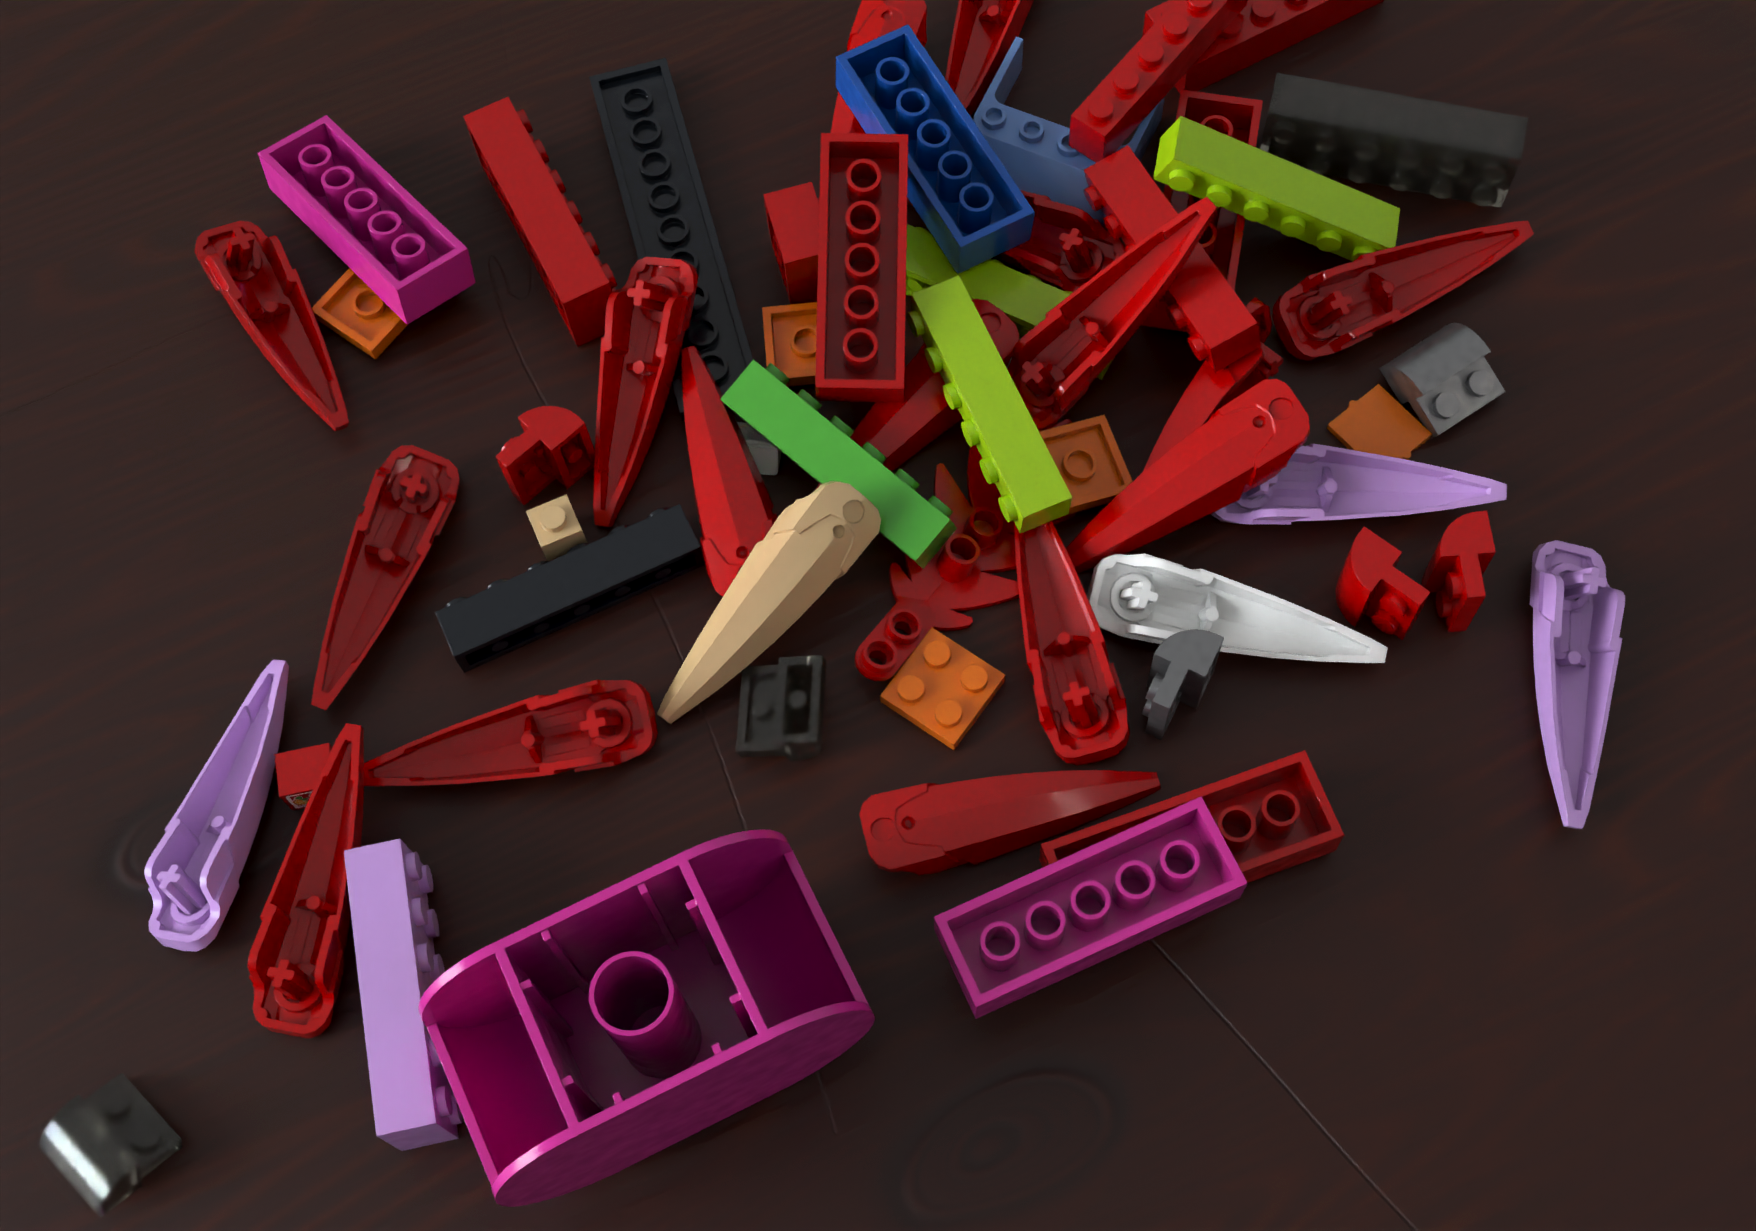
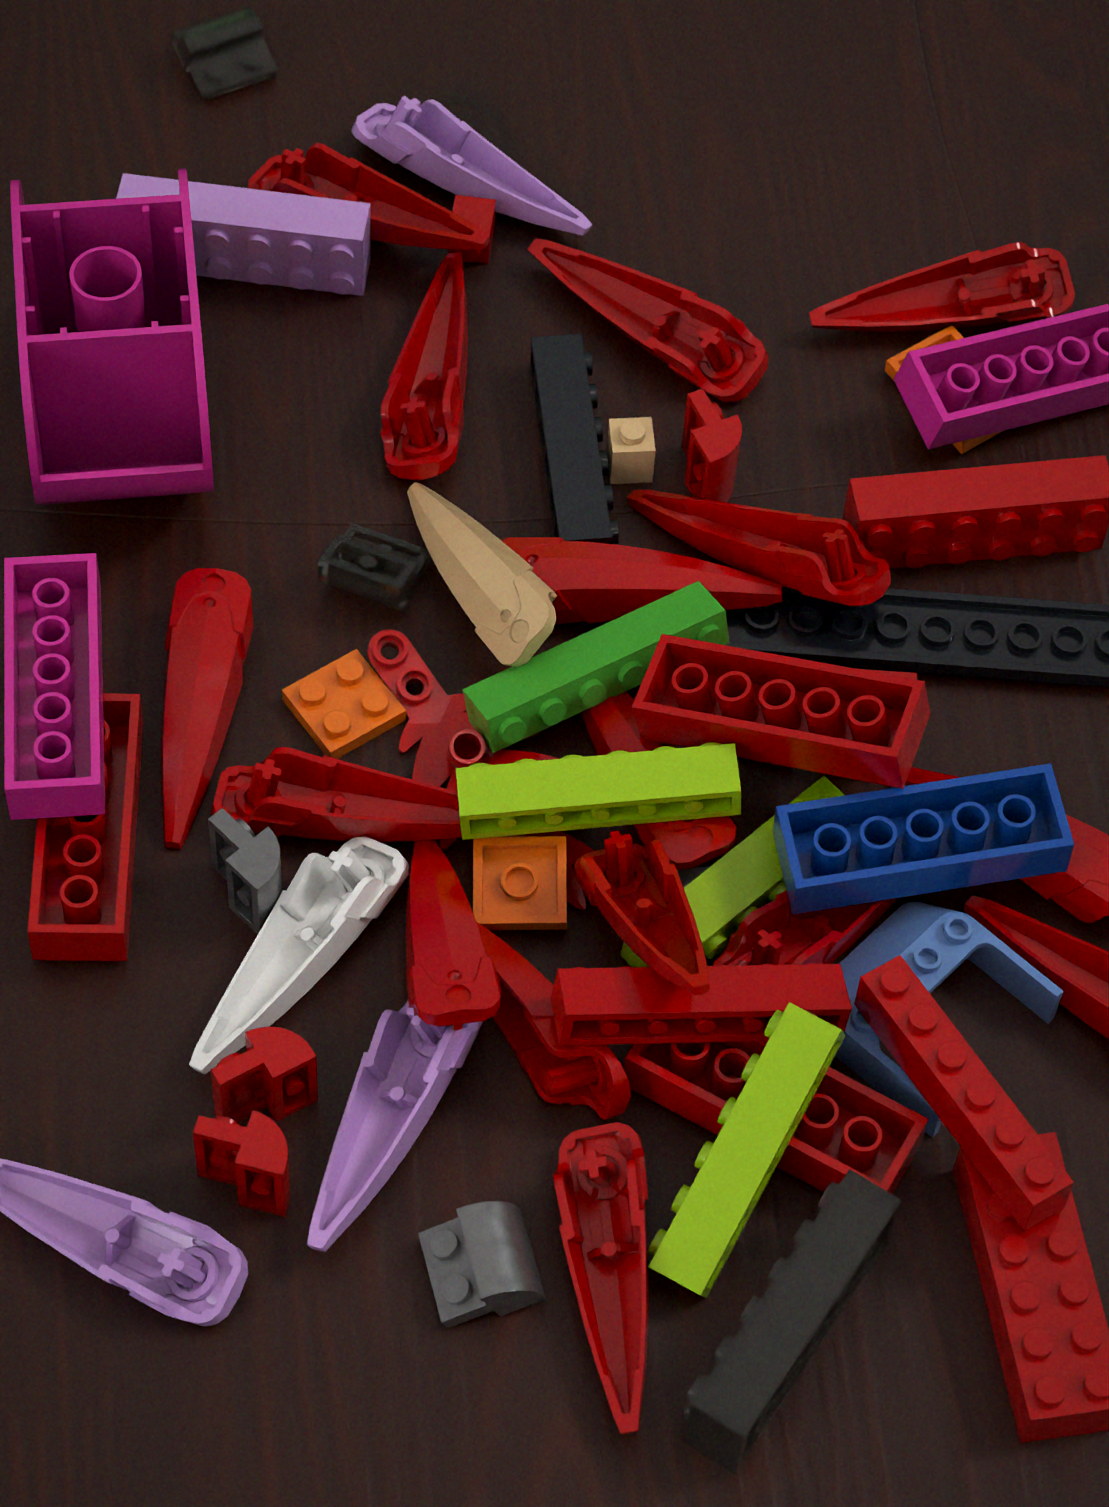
camera: 100 degrees right, 10 degrees down
(1379, 426) = (447, 1182): orange piece -> none

